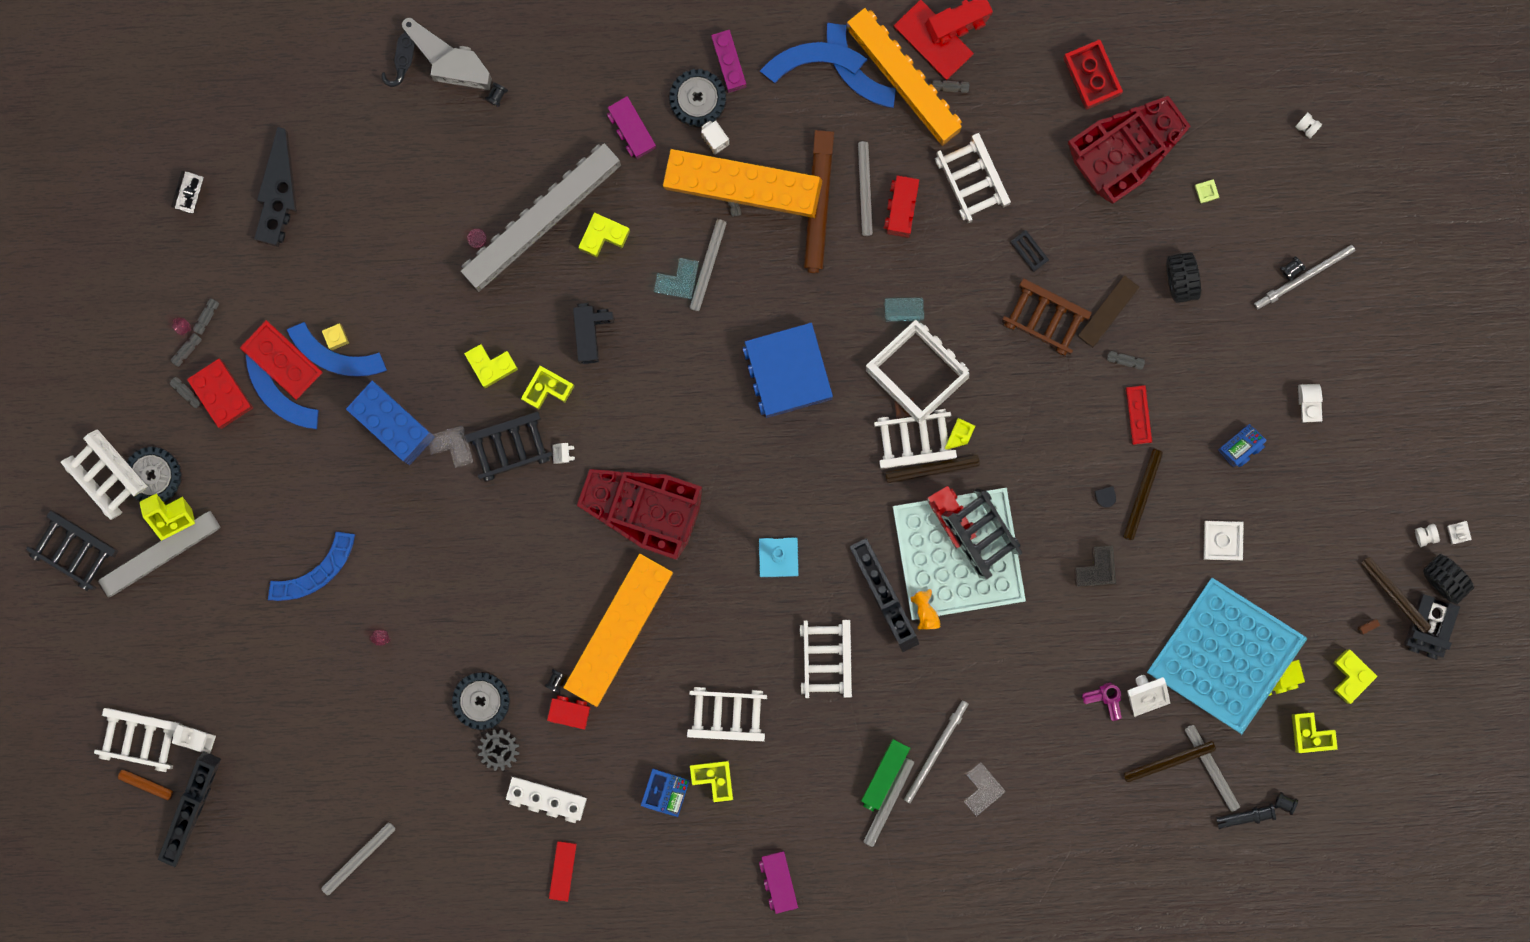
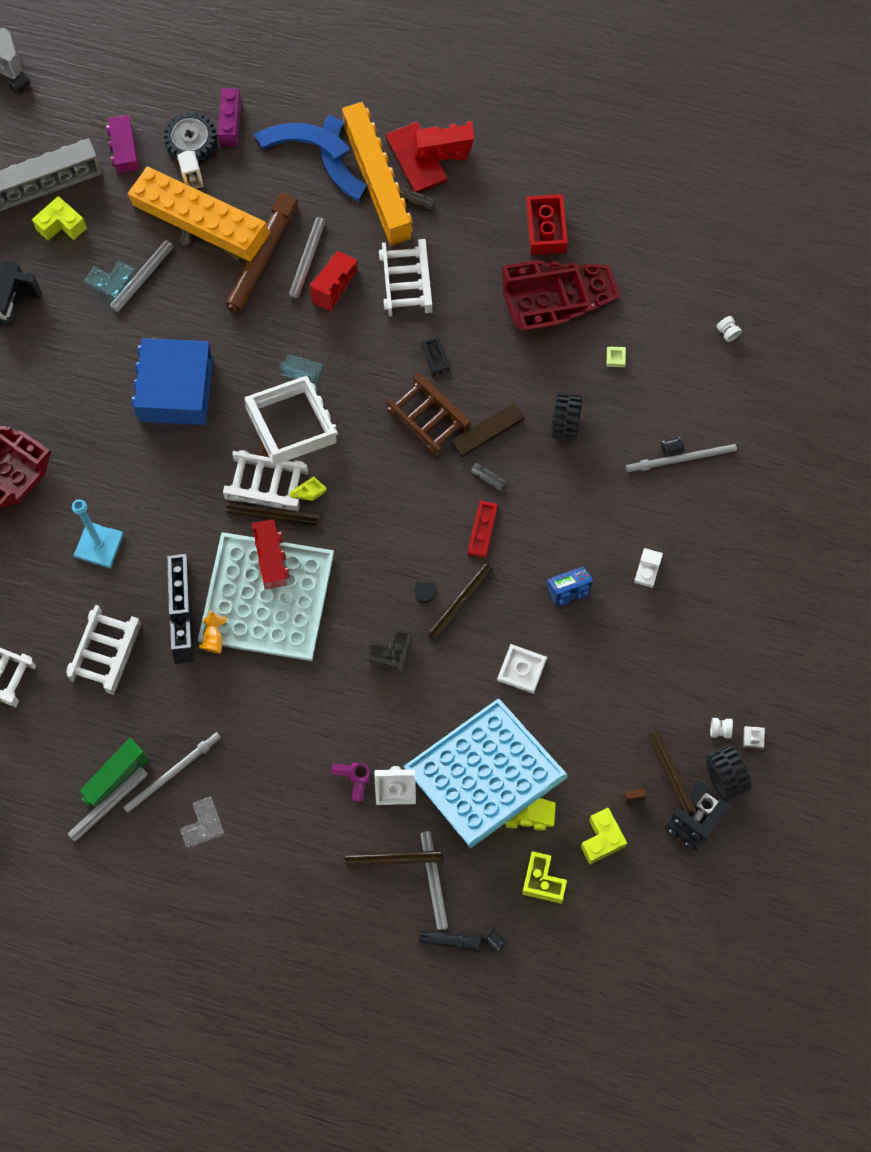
camera: 20 degrees right, 15 degrees down
(963, 535) = (271, 572): black fence -> none

